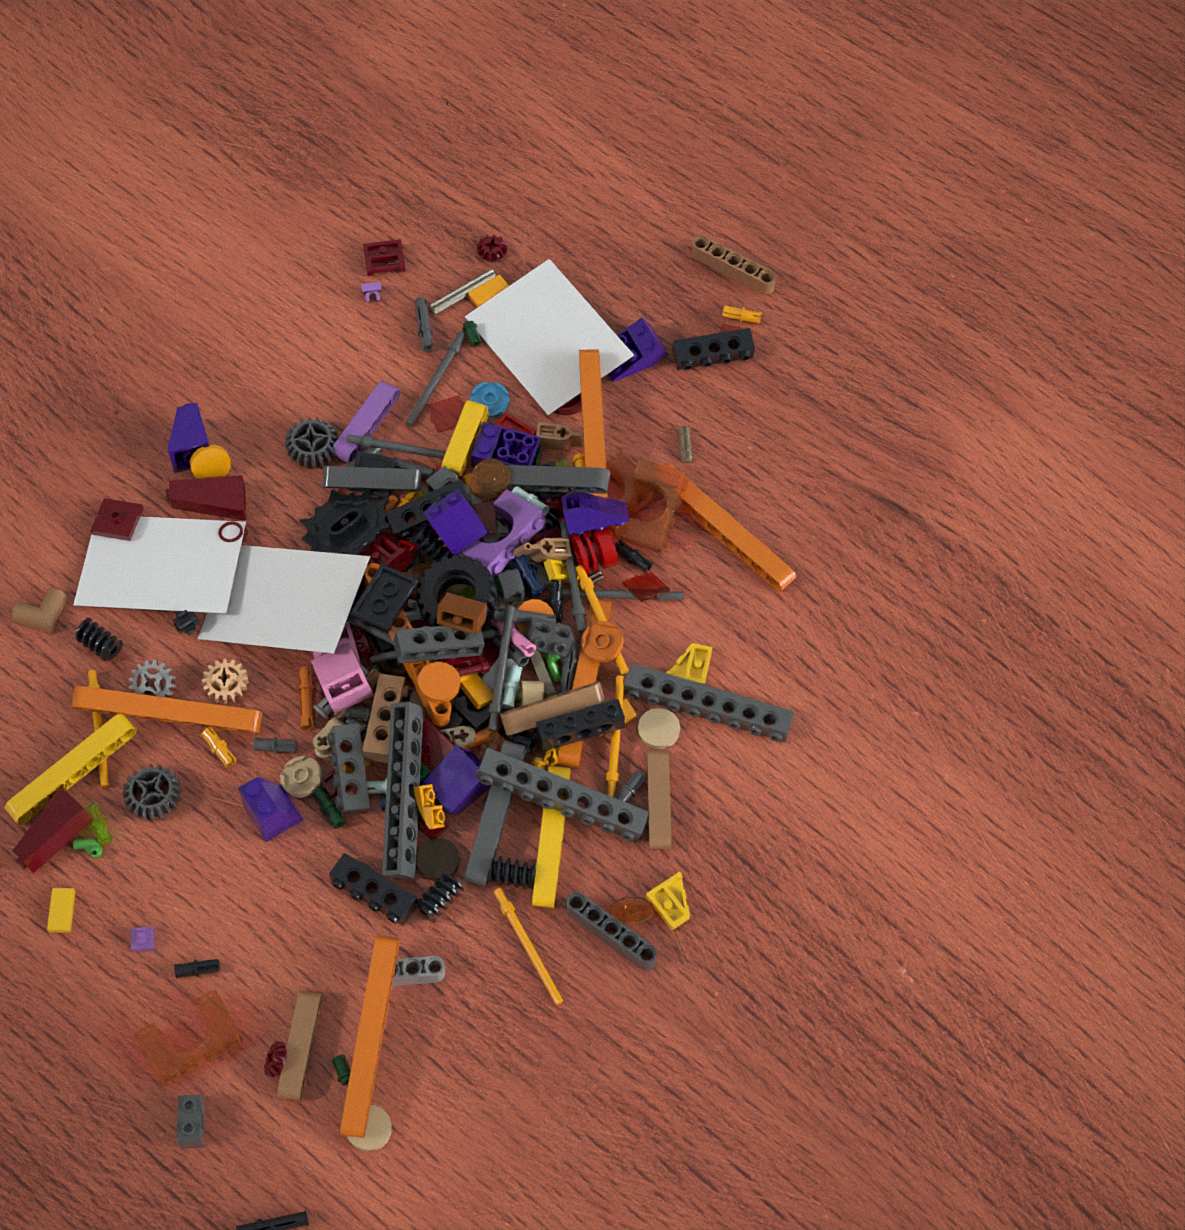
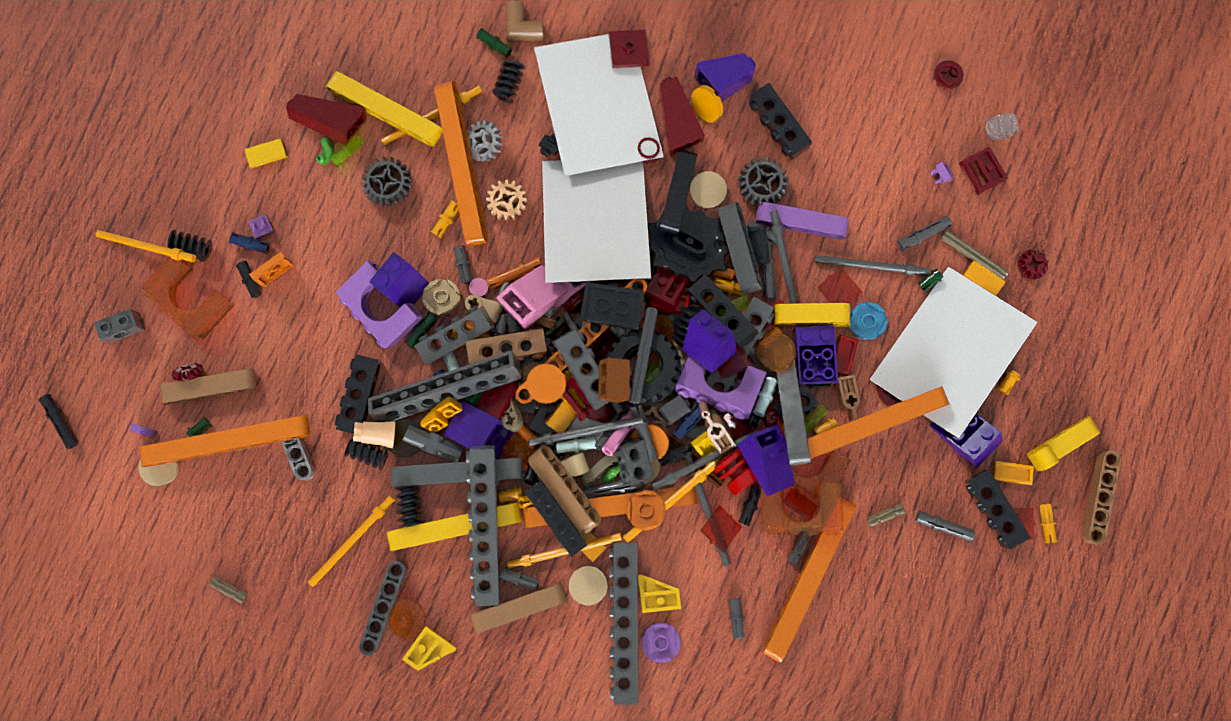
camera: 70 degrees right, 20 degrees up
(48, 643) = (494, 43): none -> dark green pin
(130, 1018) = (200, 249): none -> black piece
(138, 1024) = (175, 253): none -> light orange bar
(156, 955) = (249, 243): none -> dark blue pin
(199, 932) = (272, 269): none -> orange tile
(260, 401) = (767, 96): none -> black brick
(263, 859) = (355, 295): none -> medium lavender arch
(276, 249) = (955, 71): none -> dark red gear
(289, 516) = (678, 192): none -> black beam
(297, 495) = (708, 190): none -> tan tile
(305, 738) = (478, 287): none -> bright pink tile
(320, 1132) = (143, 430): none -> medium lavender tile
(348, 226) = (1002, 126): none -> clear gear
(423, 874) = (375, 433): none -> light nougat plant
(444, 581) = (643, 355): none -> dark grey axle
(455, 828) = (432, 444): none -> dark grey piece
(534, 1091) = (228, 589): none -> dark tan axle
(595, 301) = (1008, 382): none -> light orange pin
(675, 287) = (1052, 450): none -> yellow beam
(684, 326) = (1013, 472): none -> light orange tile
(688, 526) = (799, 547): none -> dark grey axle
(700, 412) = (937, 523): none -> dark grey pin
(738, 602) = (736, 618): none -> dark grey axle
(740, 678) = (661, 642): none -> medium lavender tile

